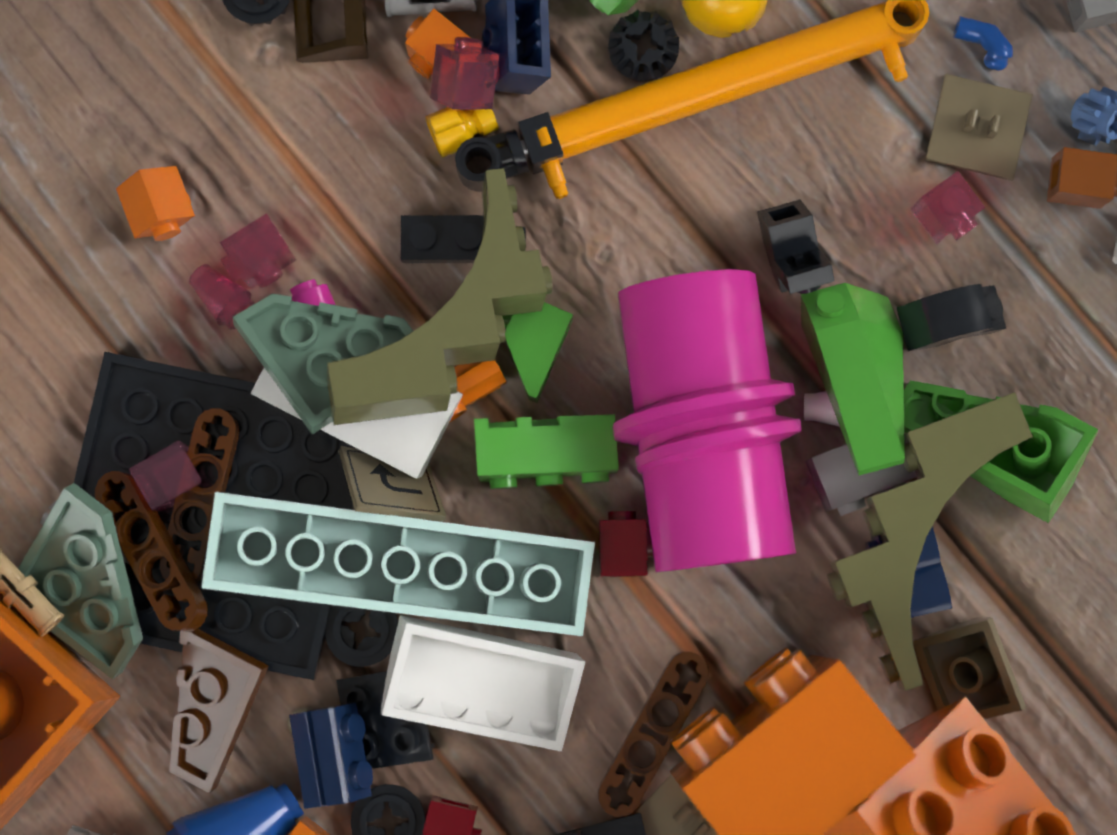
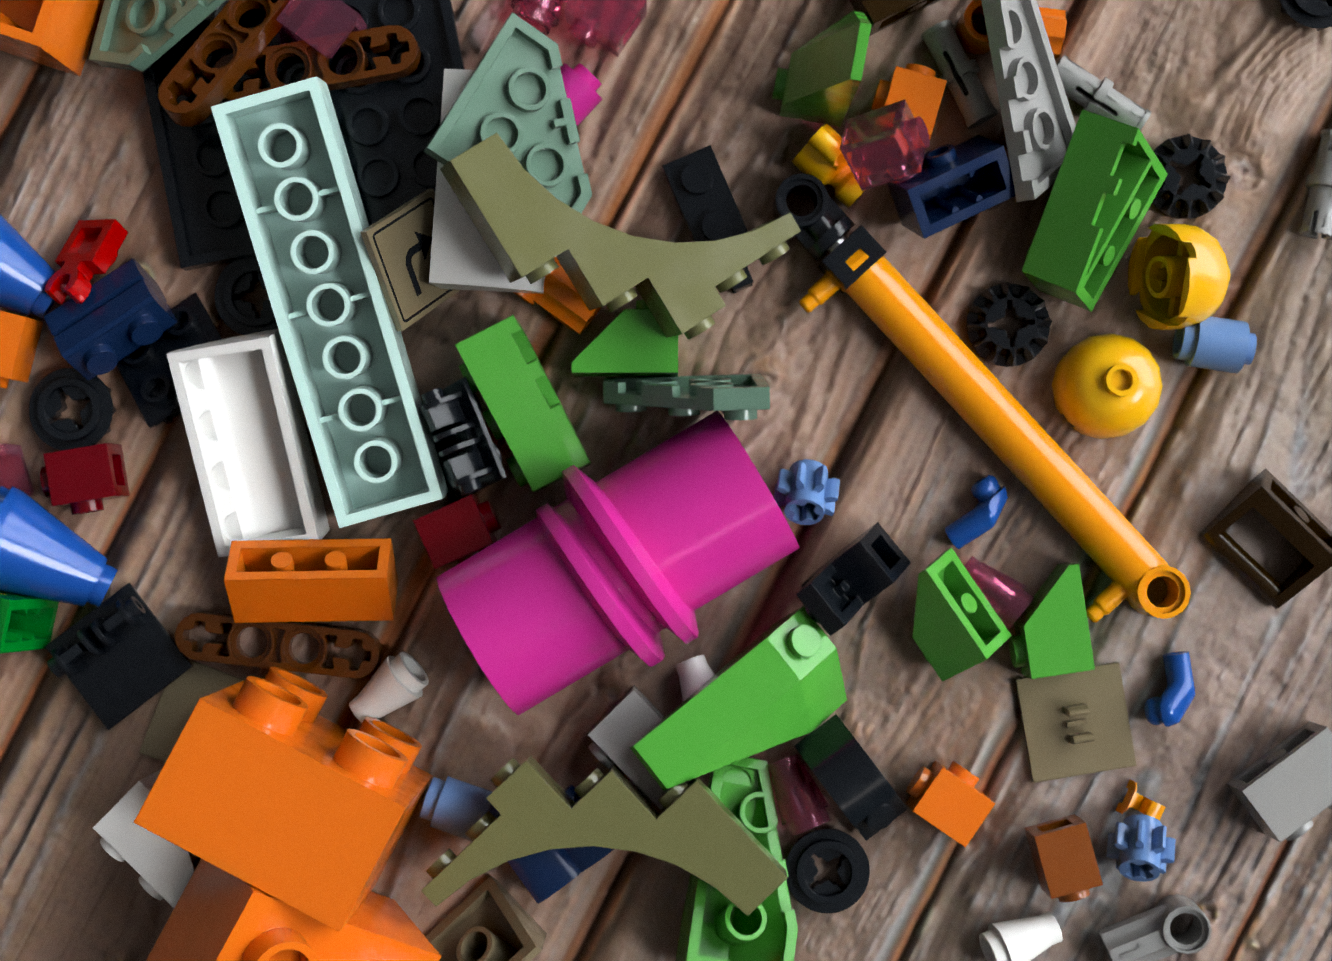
camera: 65 degrees right, 5 degrees up
(212, 706) = (110, 176): wing -> none
(266, 752) = (87, 252): none -> red plate
(387, 92) = (825, 72): none -> bright green wedge
(553, 508) = (462, 440): none -> black hinge
(594, 314) = (733, 394): none -> sand green plate
(613, 680) = (311, 580): none -> orange brick
(709, 251) = (806, 492): none -> medium blue gear
(727, 657) = (390, 688): none -> white cone
(786, 126) = (983, 516): none -> blue arm
(847, 639) = (455, 805): none -> medium blue brick
(851, 145) = (1002, 591): none -> clear pink cone
(860, 182) = (954, 618): none -> bright green slope
(898, 109) = (1054, 628): none -> bright green slope
(948, 209) = (967, 727): clear pink brick -> none
(949, 366) = (798, 796): none -> clear pink cone
(1001, 248) = (949, 800): none -> orange brick
(1024, 349) = (826, 895): none -> black gear
(1062, 104) = (1139, 803): none -> light orange piece

